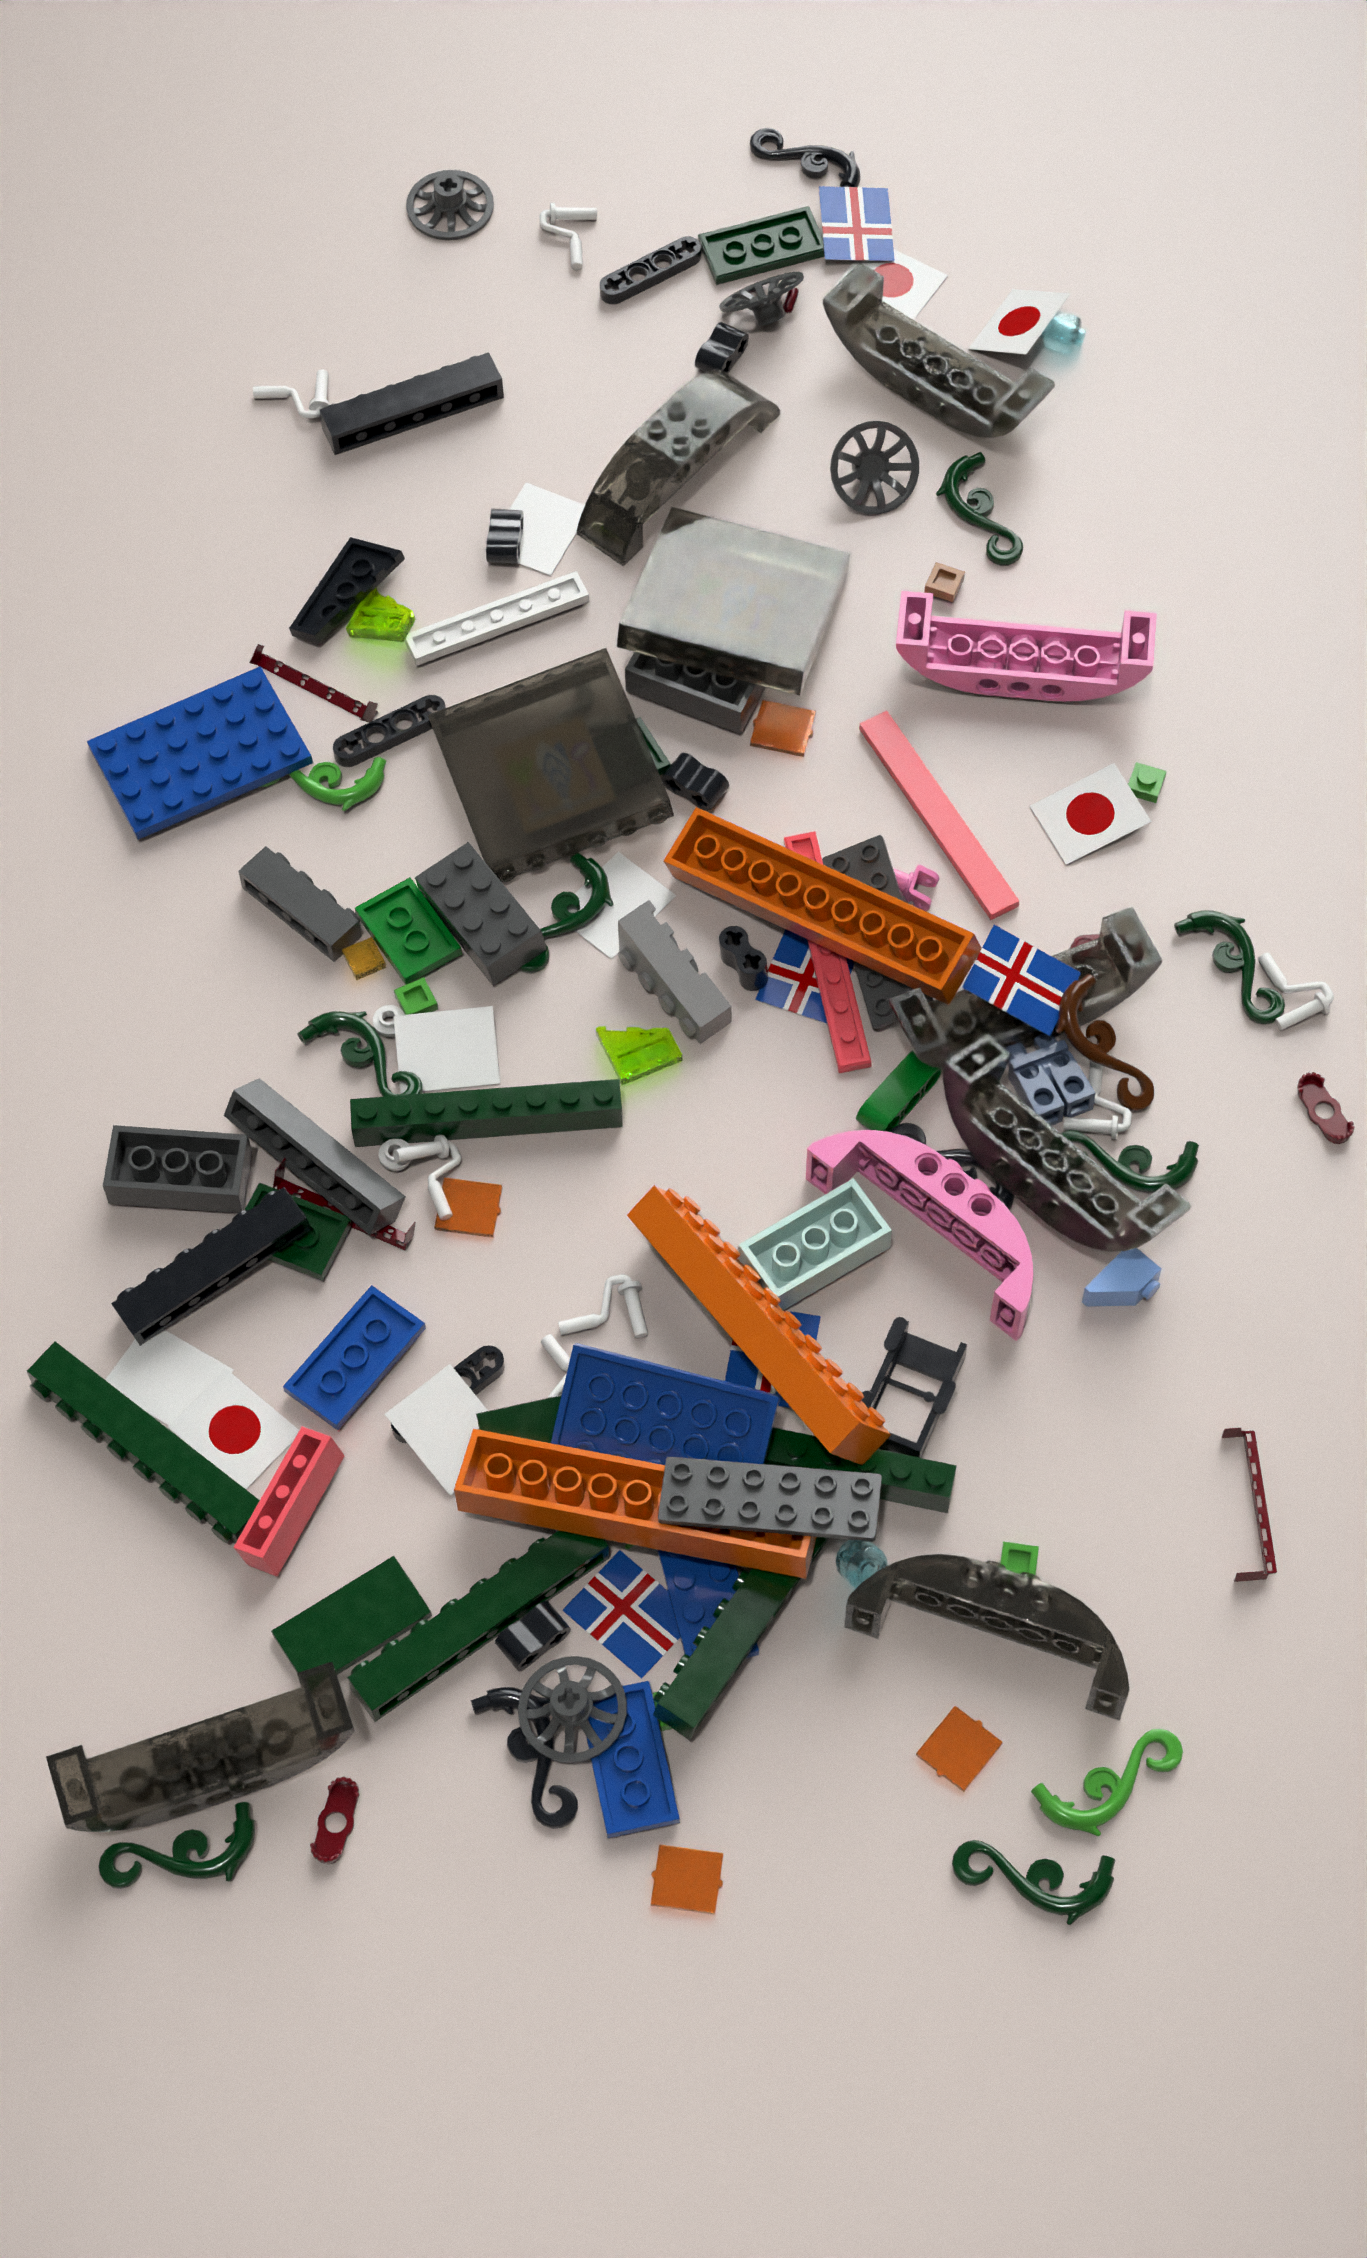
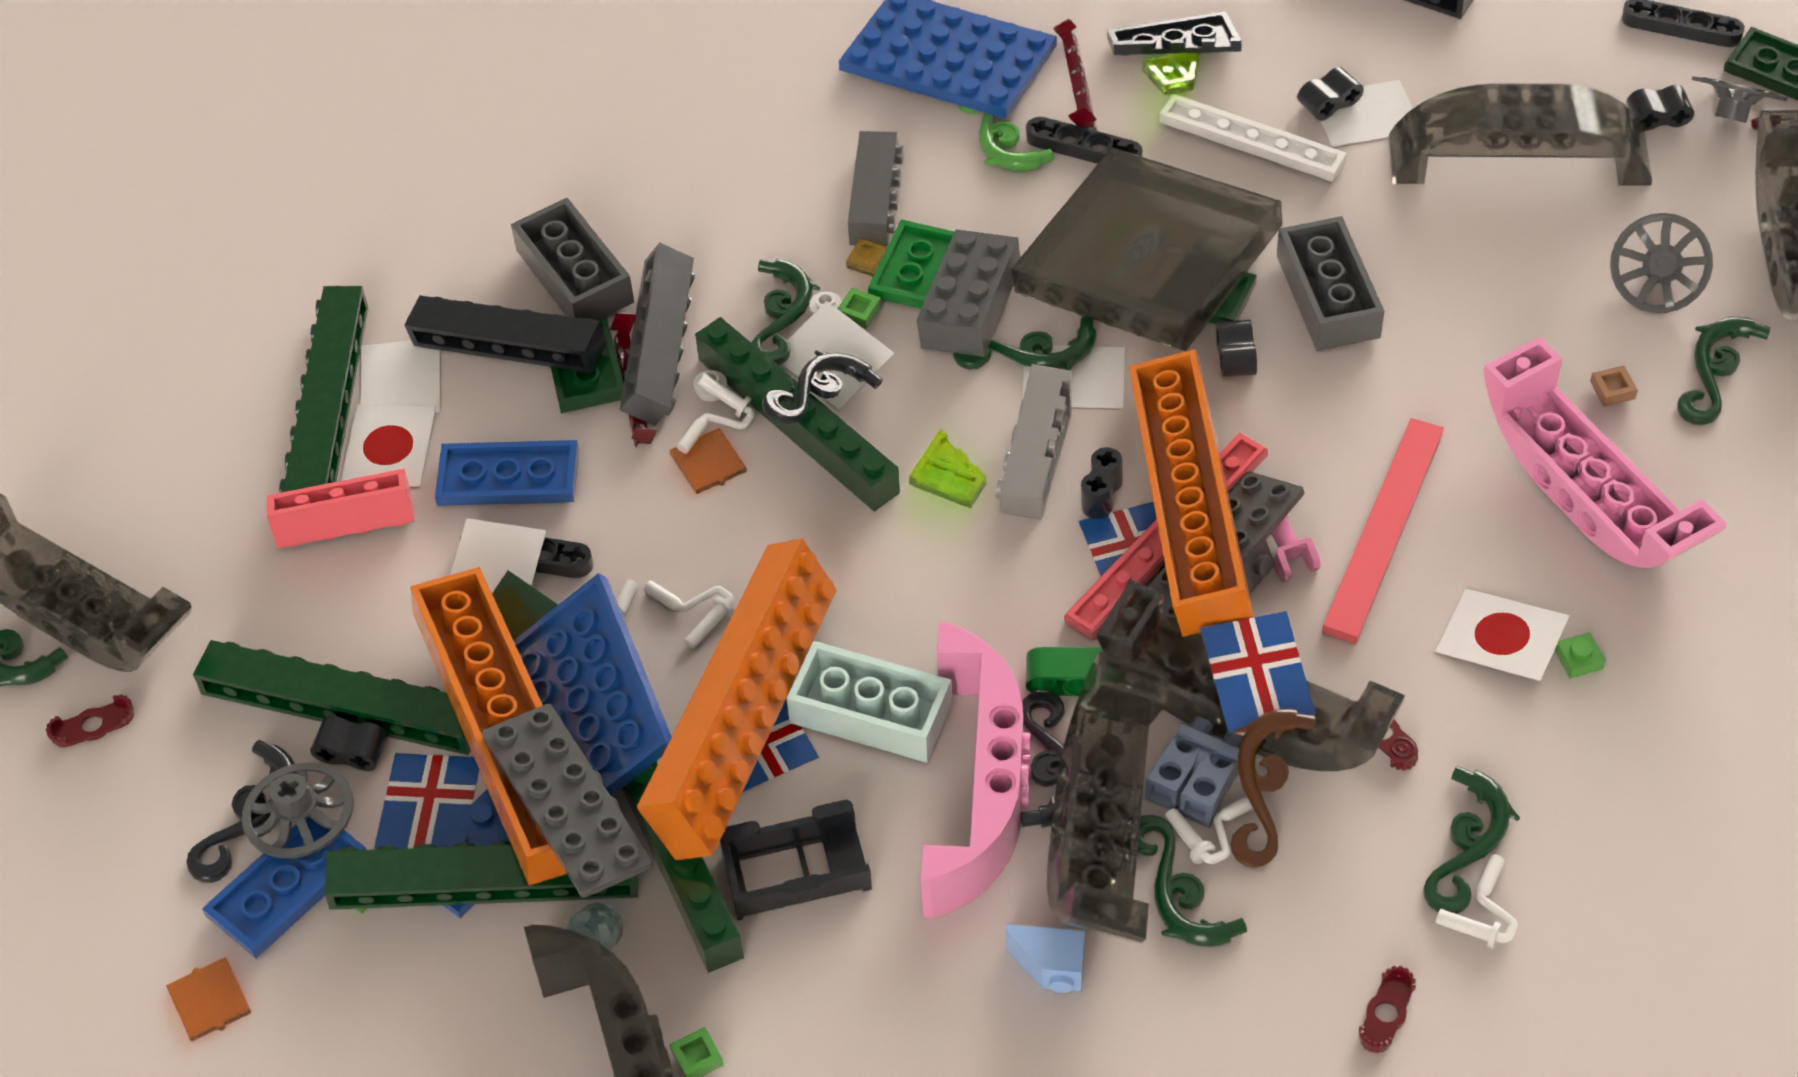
camera: 55 degrees right, 10 degrees down
(353, 1620) = (273, 620): dark green tile -> none
(492, 1074) = (826, 387): none -> black plant
(734, 600) = (1423, 255): clear smoke panel -> none
(783, 728) = (1354, 375): clear orange piece -> none

